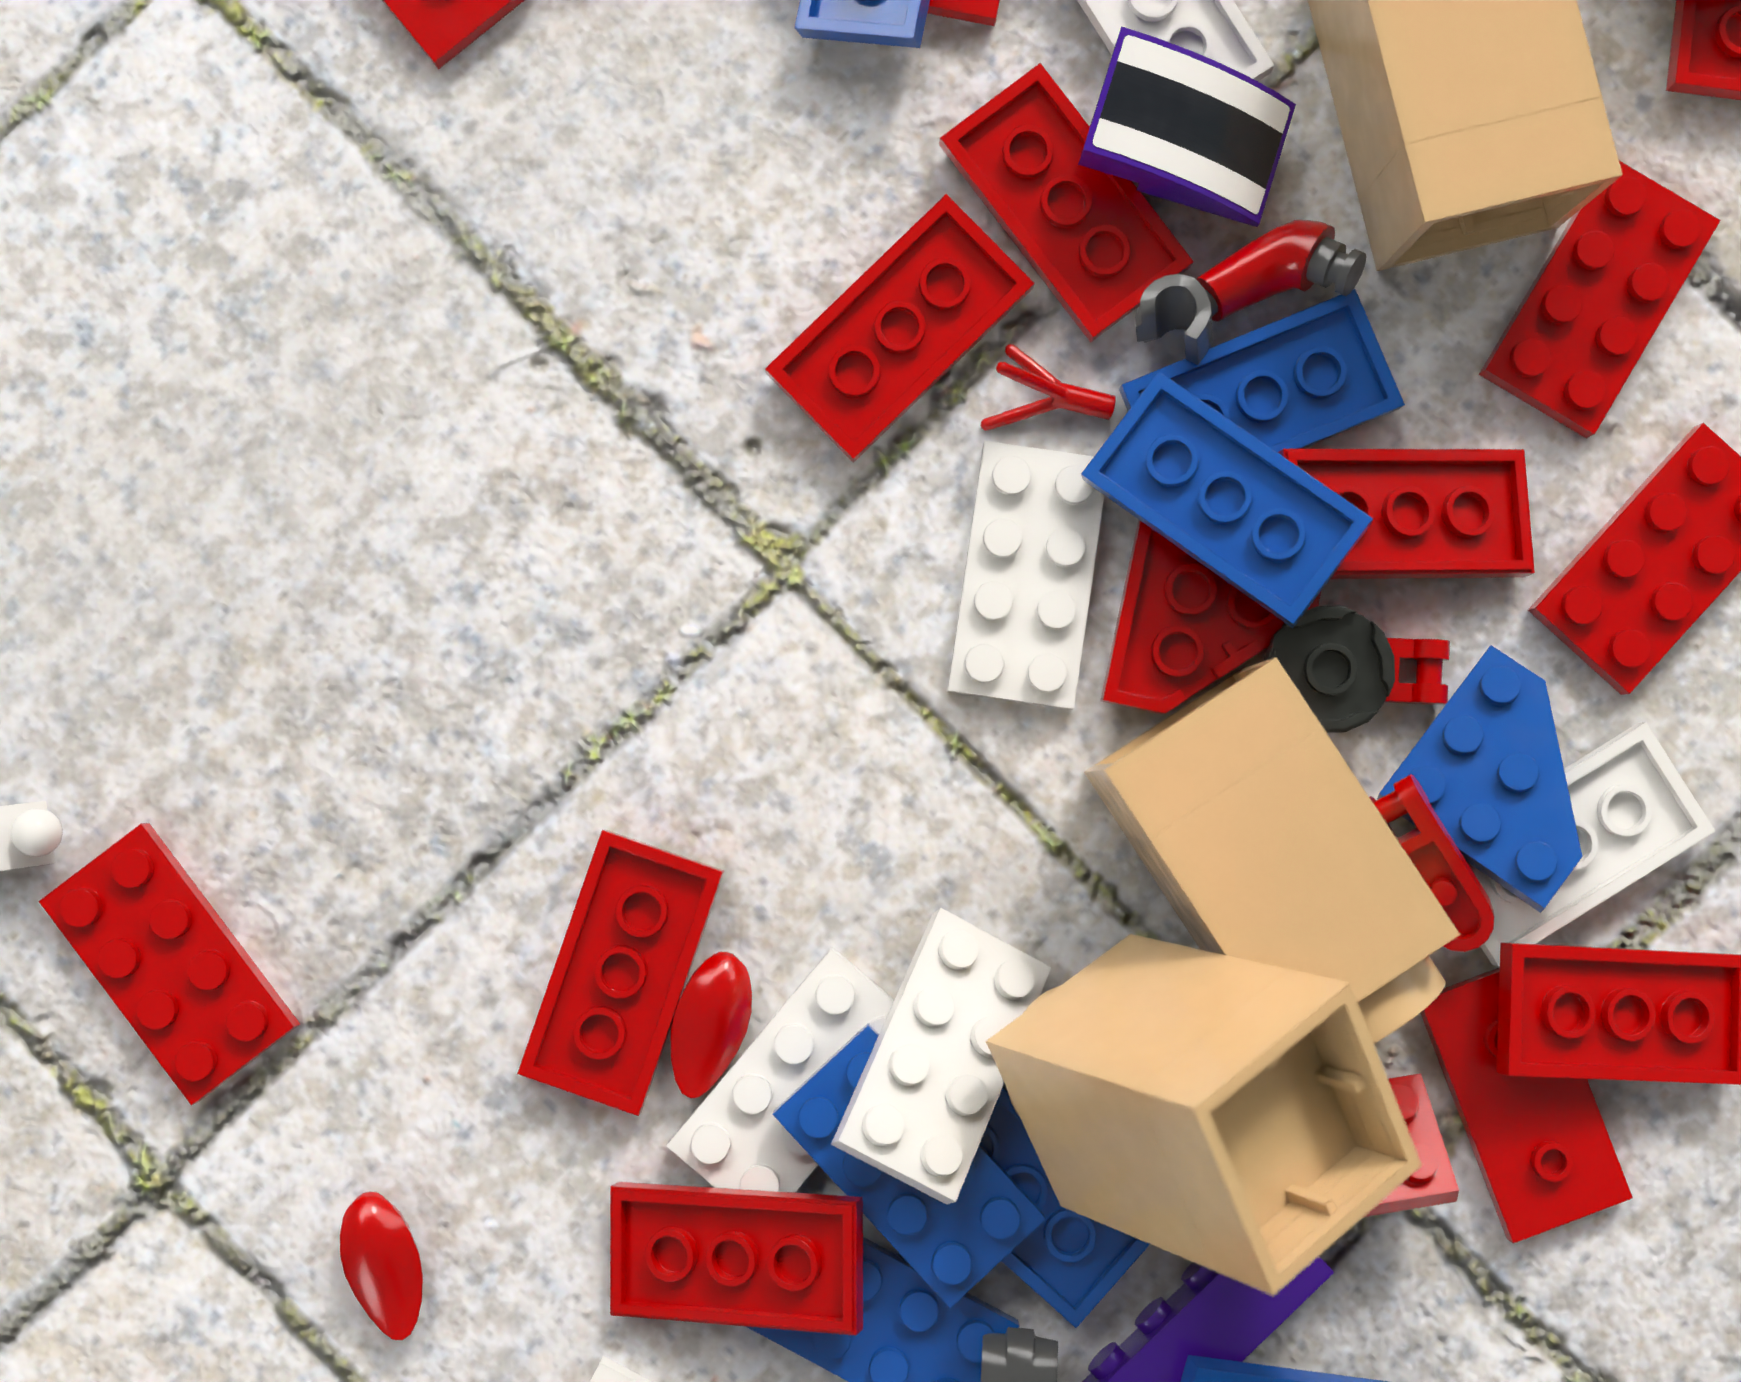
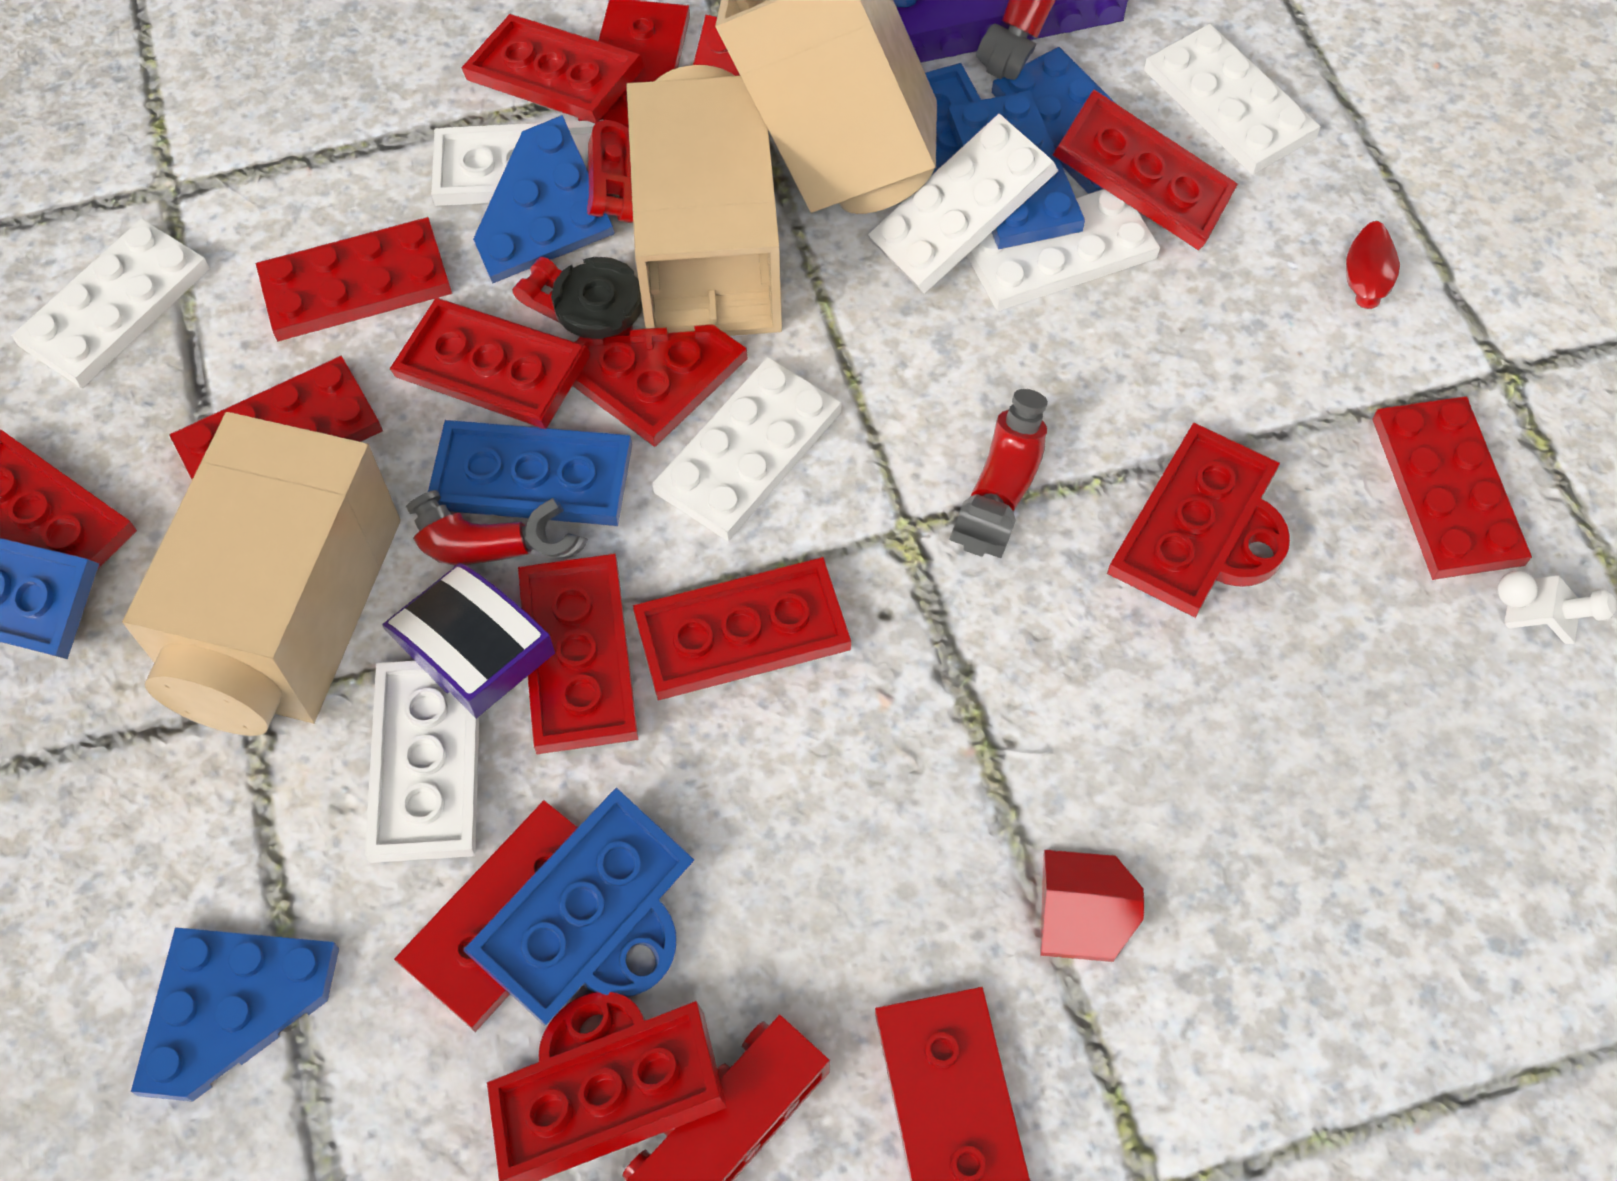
camera: 150 degrees left, 25 degrees down
(369, 214) = (1088, 906): none -> slope
(439, 747) = (1202, 524): none -> red plate
(620, 972) = (1140, 347): red plate -> none
(697, 677) = (1011, 465): none -> piece
(710, 1022) = (1097, 297): red arm -> none
(1061, 394) = (659, 538): red plant -> none
(1226, 499) = (598, 401): blue plate -> none

